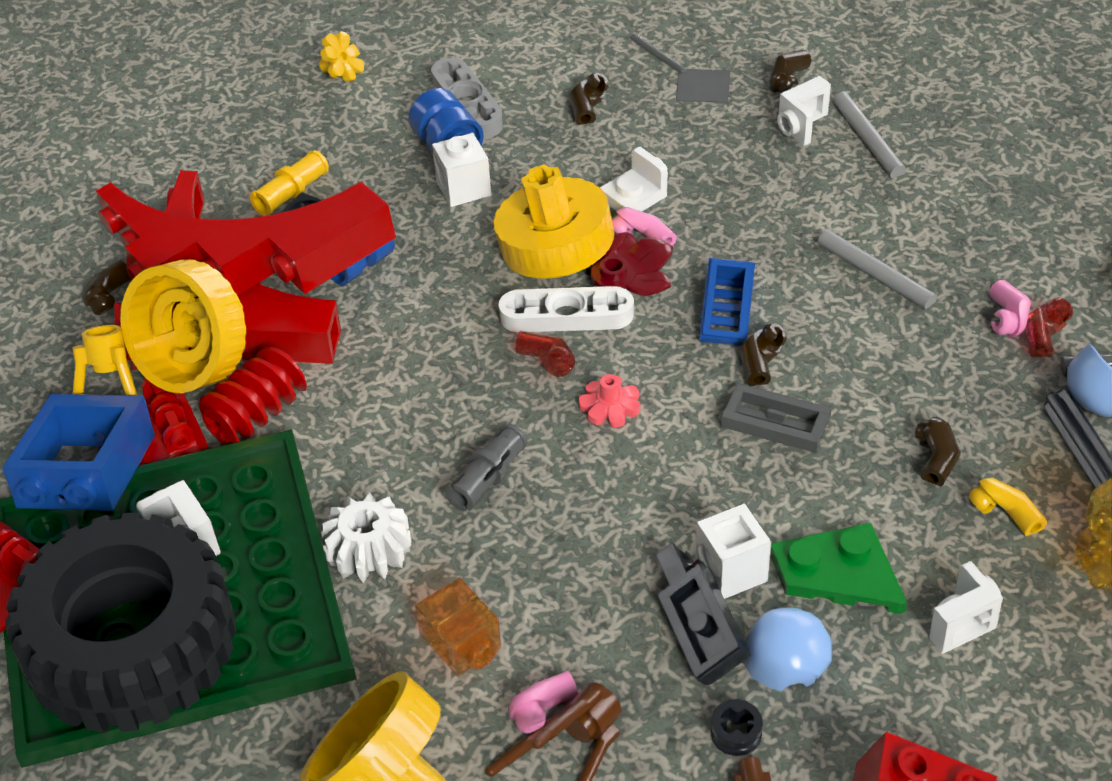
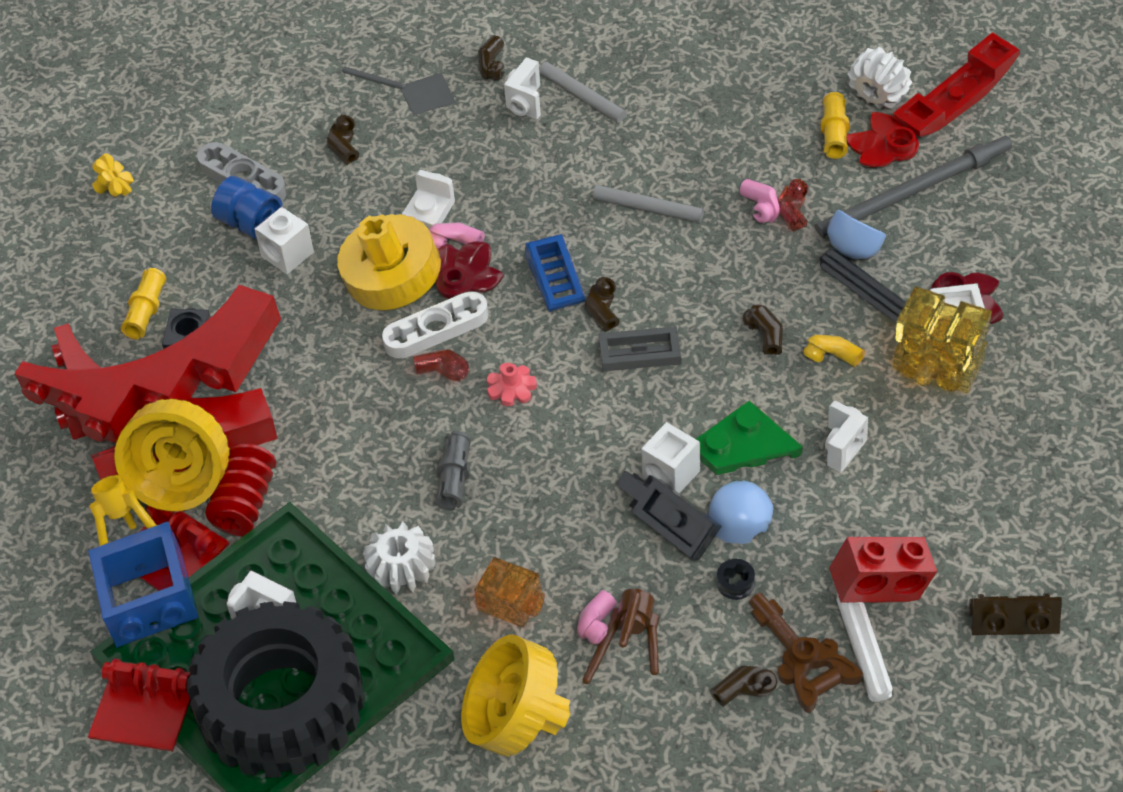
camera: 25 degrees left, 5 degrees up
(100, 285) = (45, 449): dark brown arm -> none

